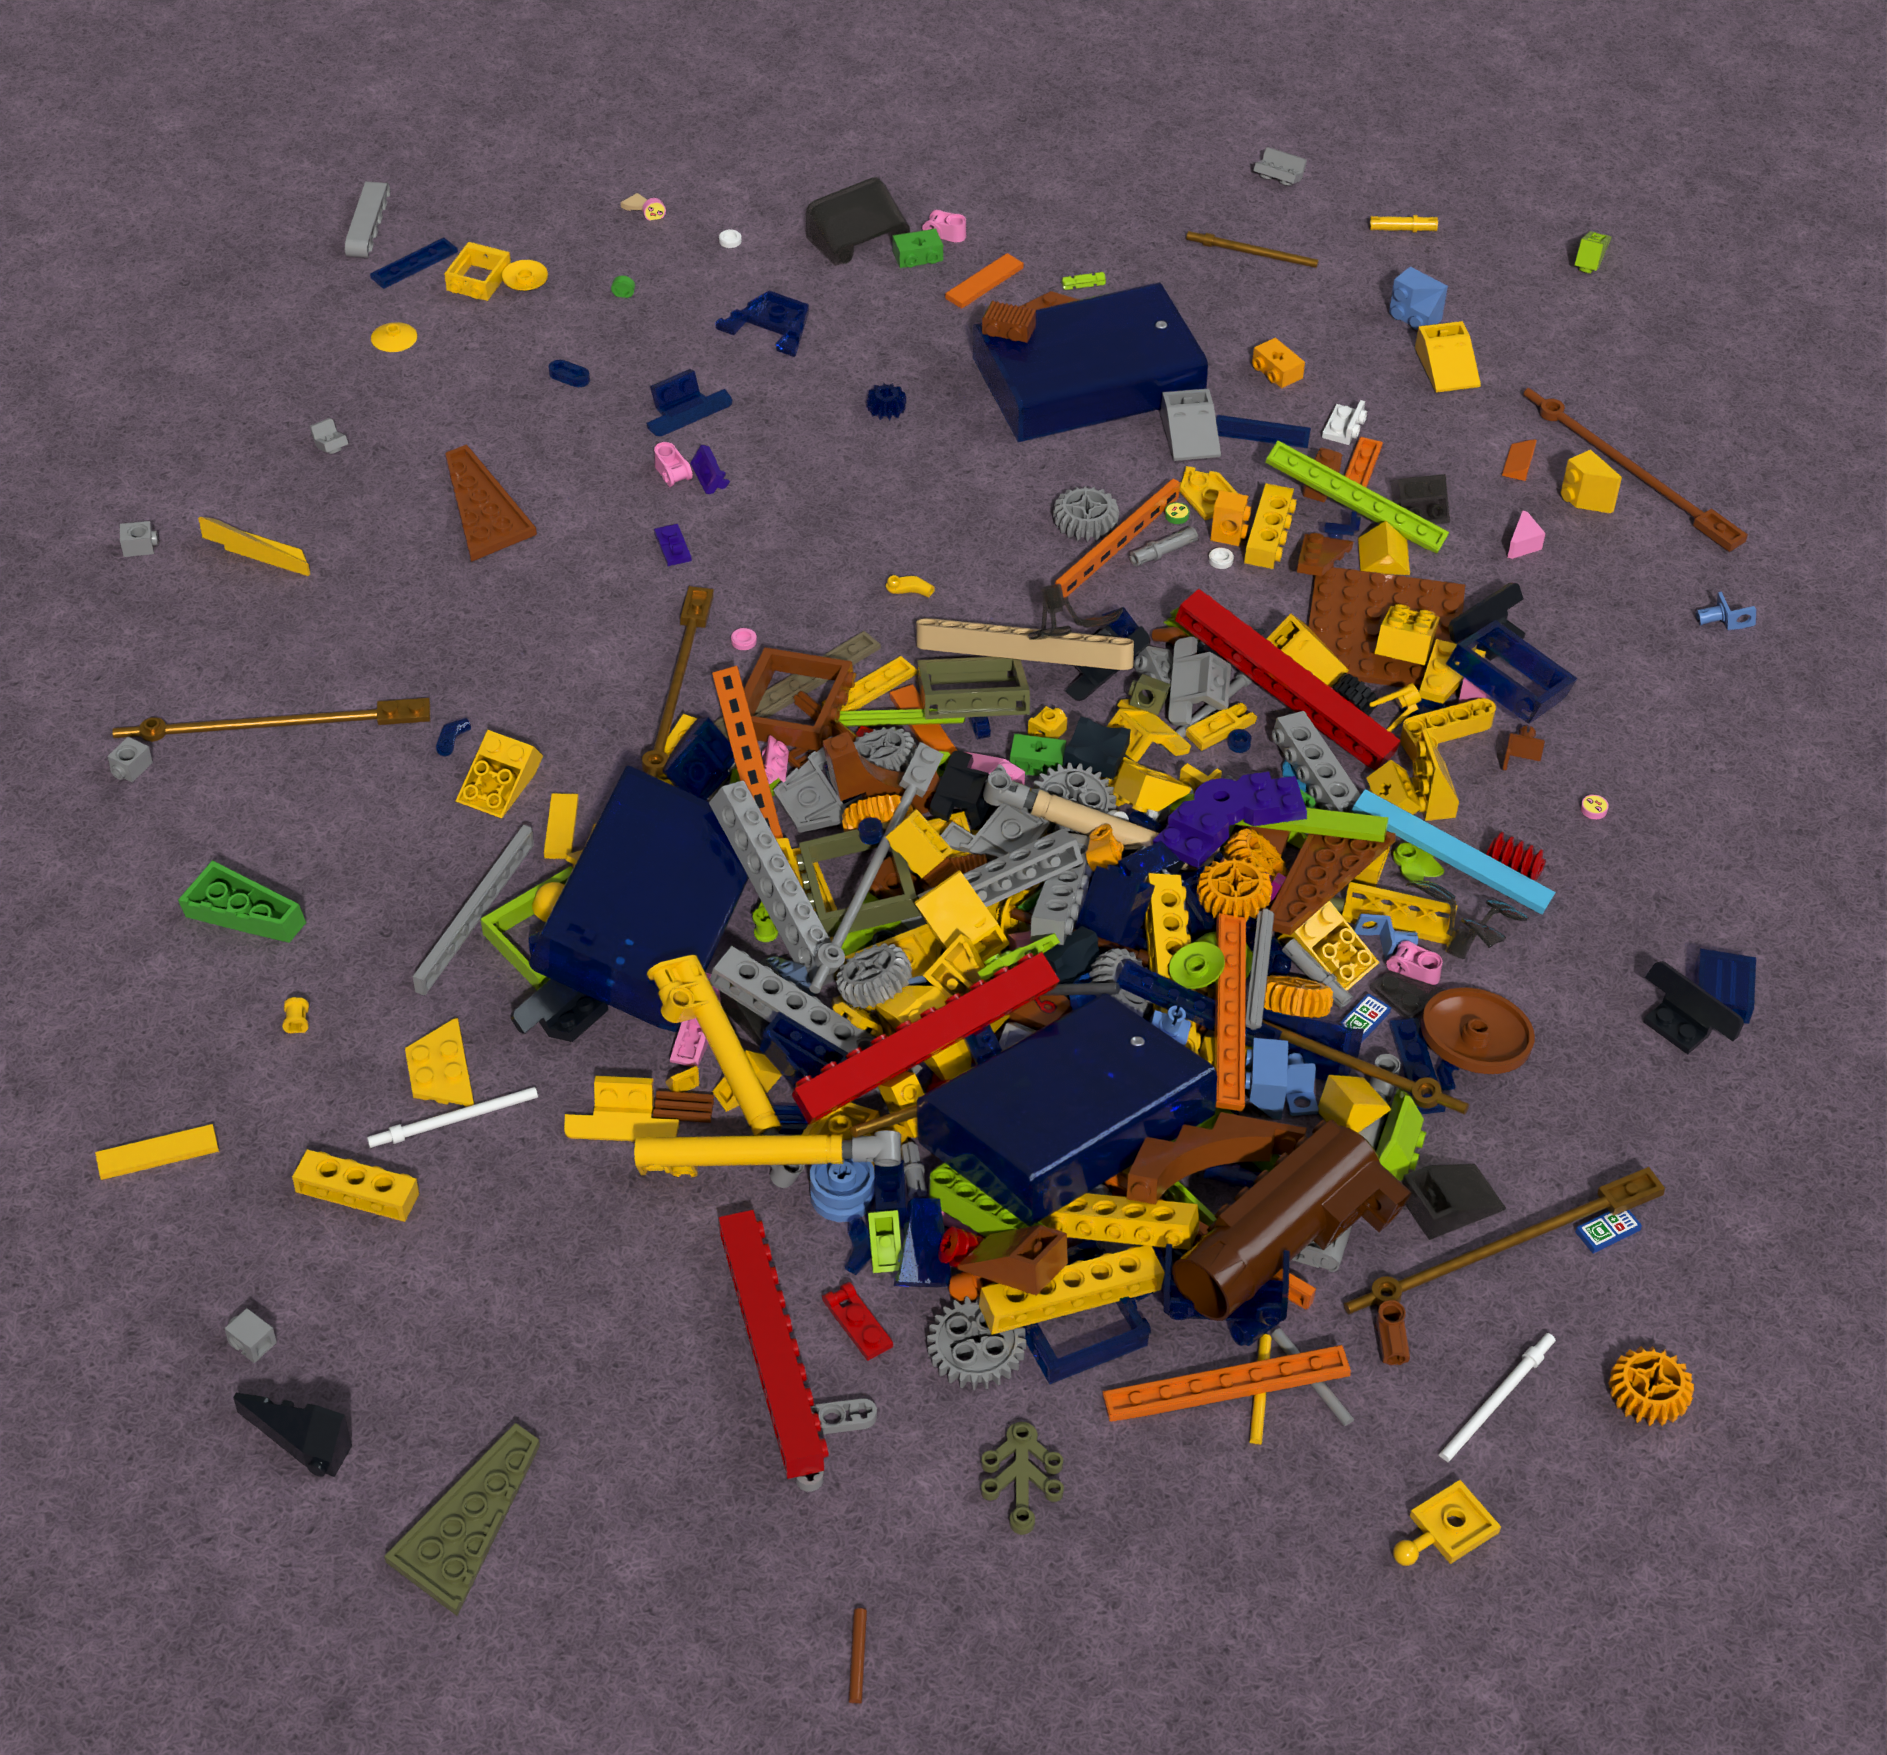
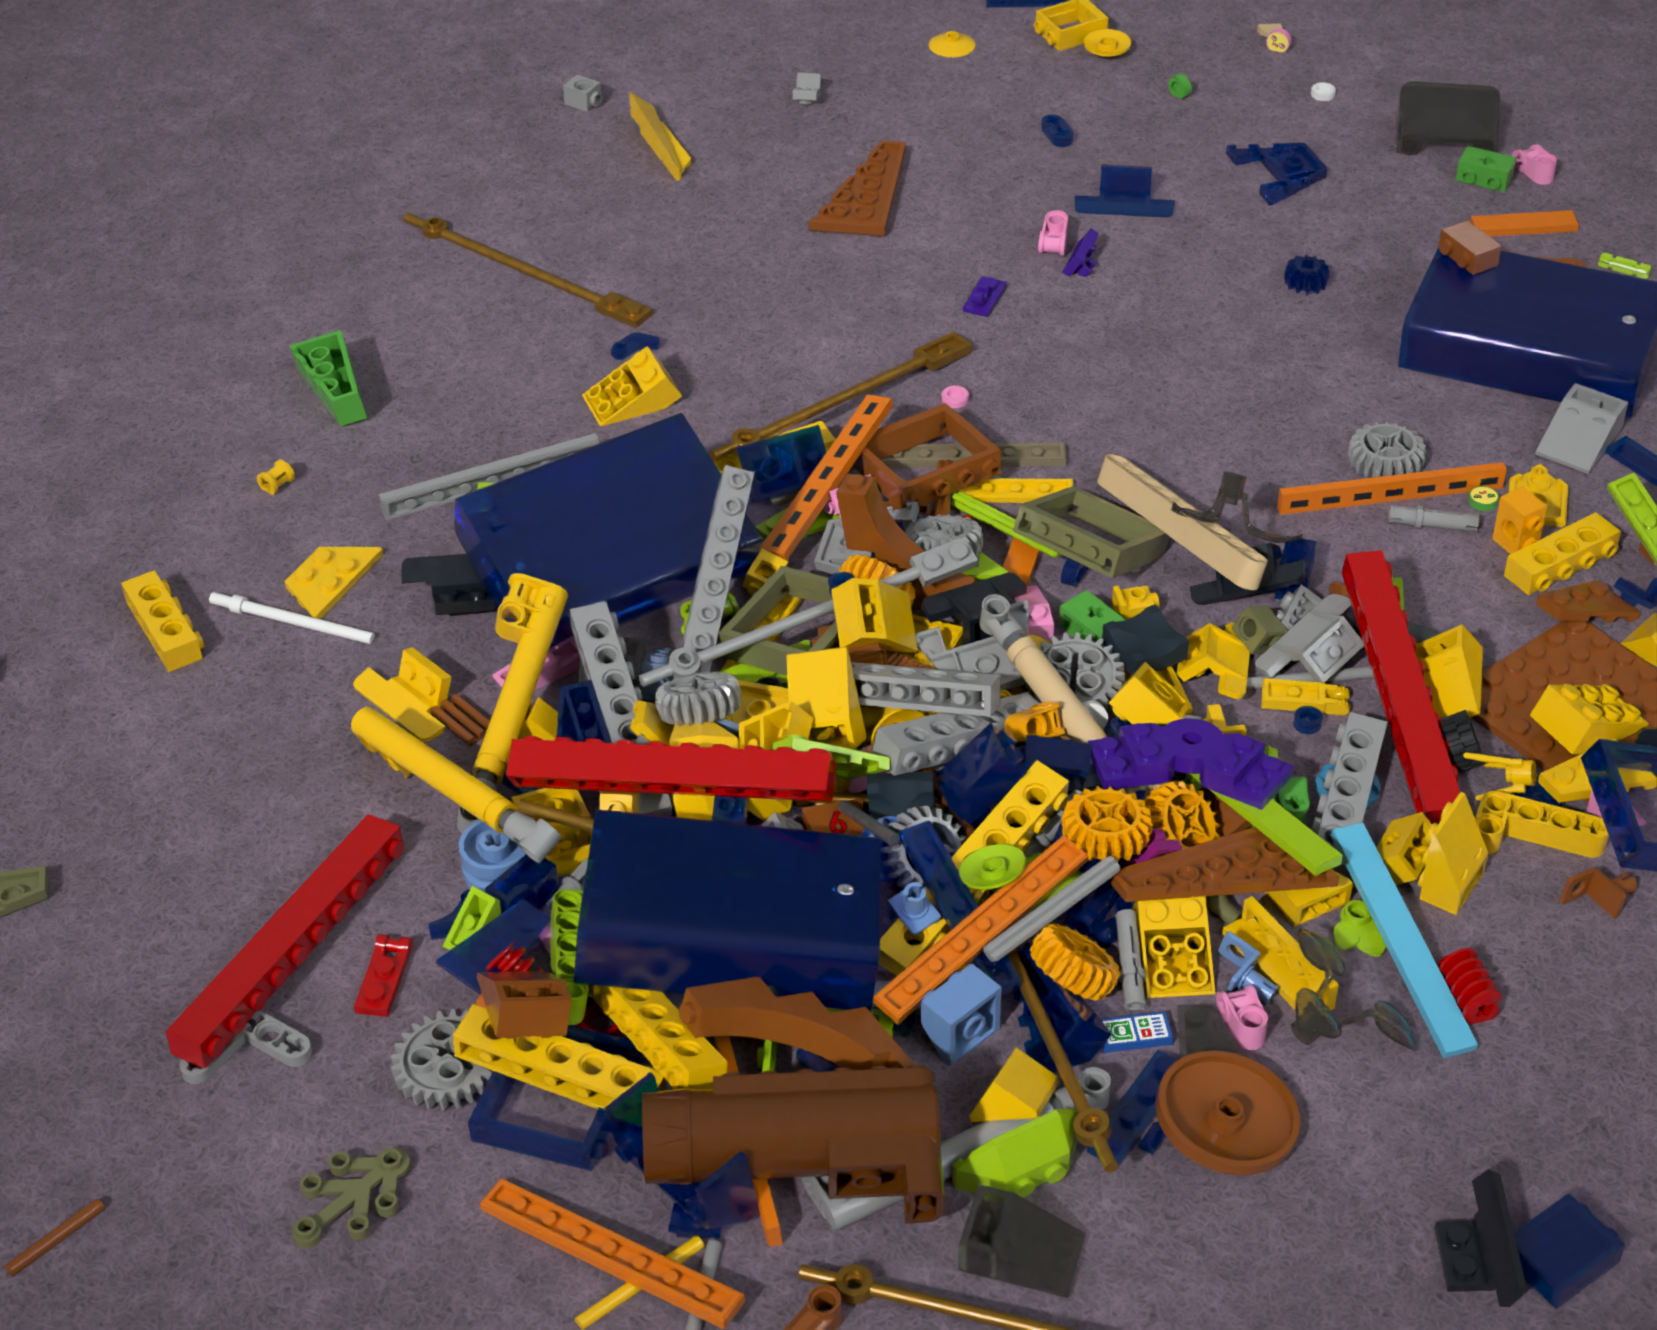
camera: 45 degrees right, 5 degrees down
(129, 759) = (388, 238): light grey brick -> none
(156, 1151) = (75, 514): yellow tile -> none
(684, 1081) = (482, 697): yellow slope -> none
(909, 584) = (1148, 427): yellow arm -> none
(1221, 558) = (1482, 558): white tile -> none
(1300, 1085) = (996, 1044): medium blue bracket -> none
(1594, 807) = (1622, 994): tile -> none

